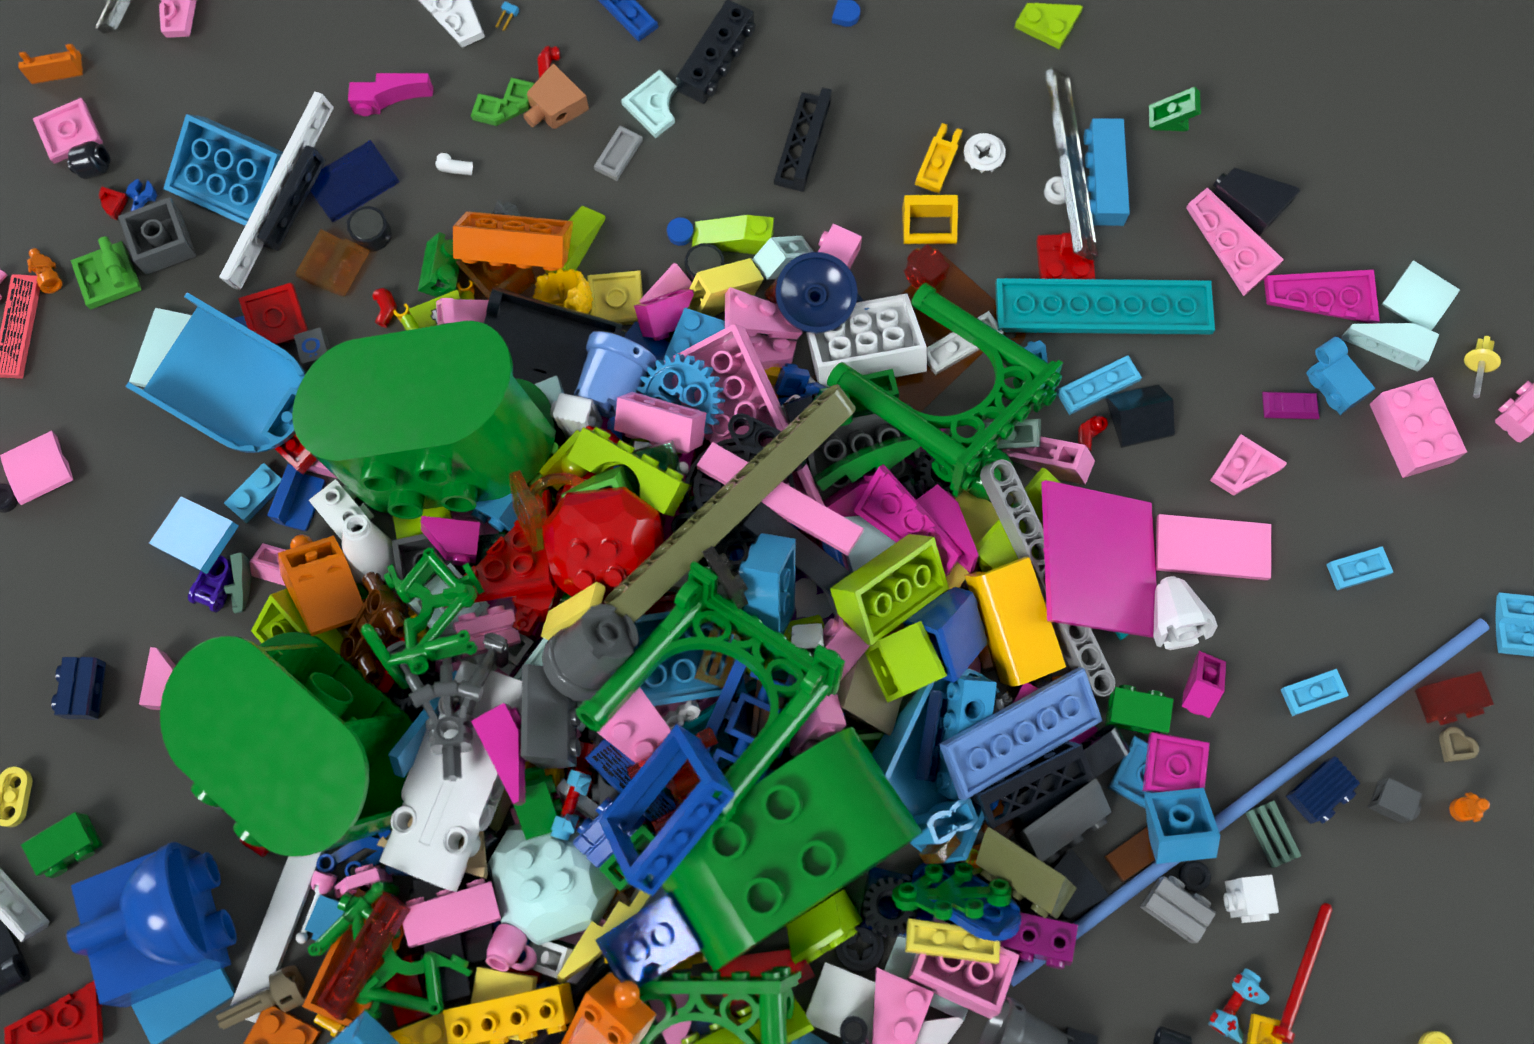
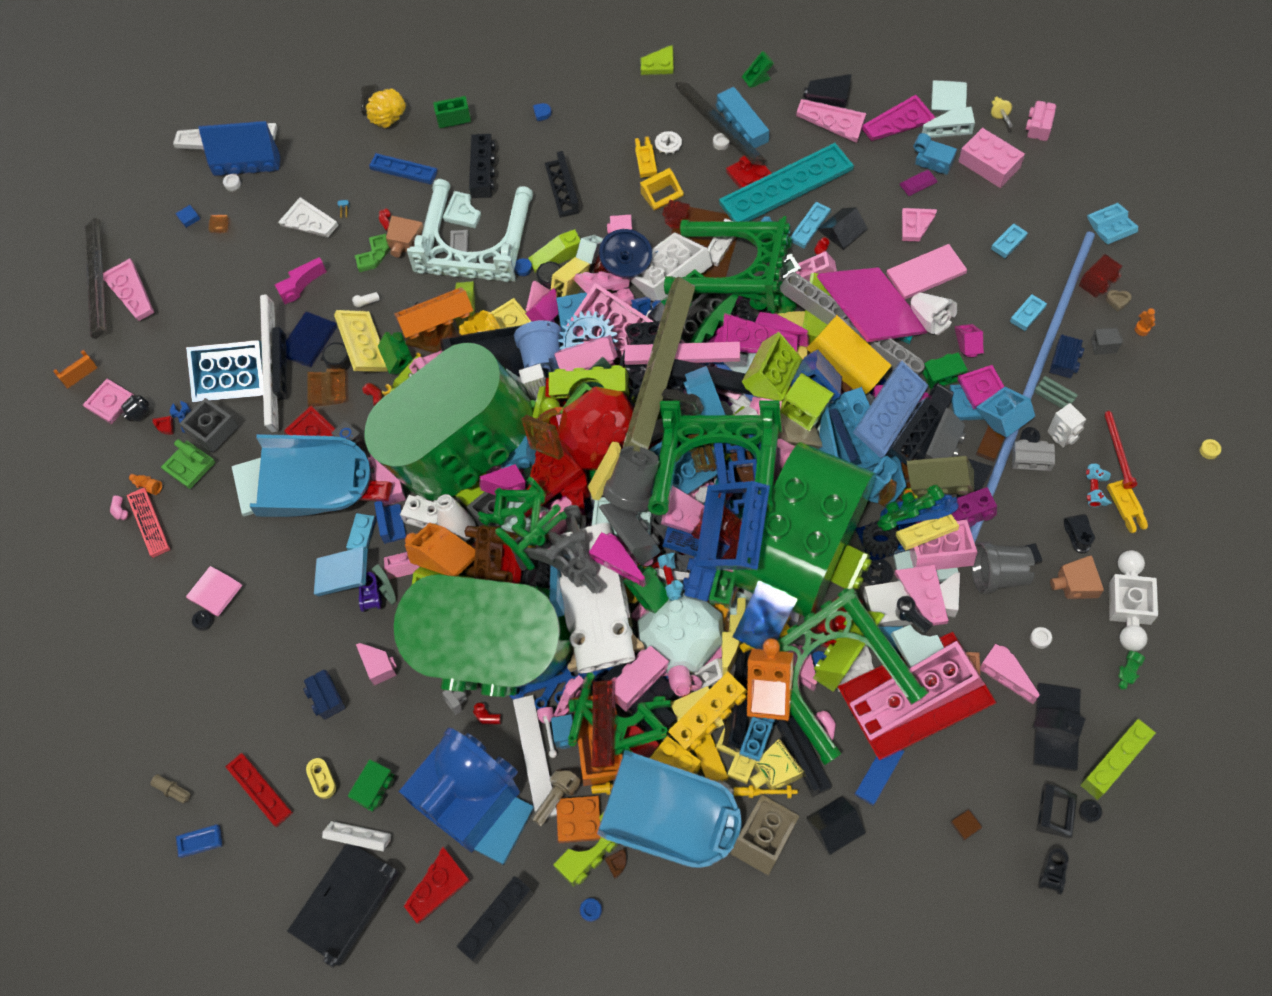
camera: 25 degrees left, 10 degrees down
(408, 222) = (360, 340): none -> light yellow plate
(650, 220) = (423, 254): none -> light aqua arch

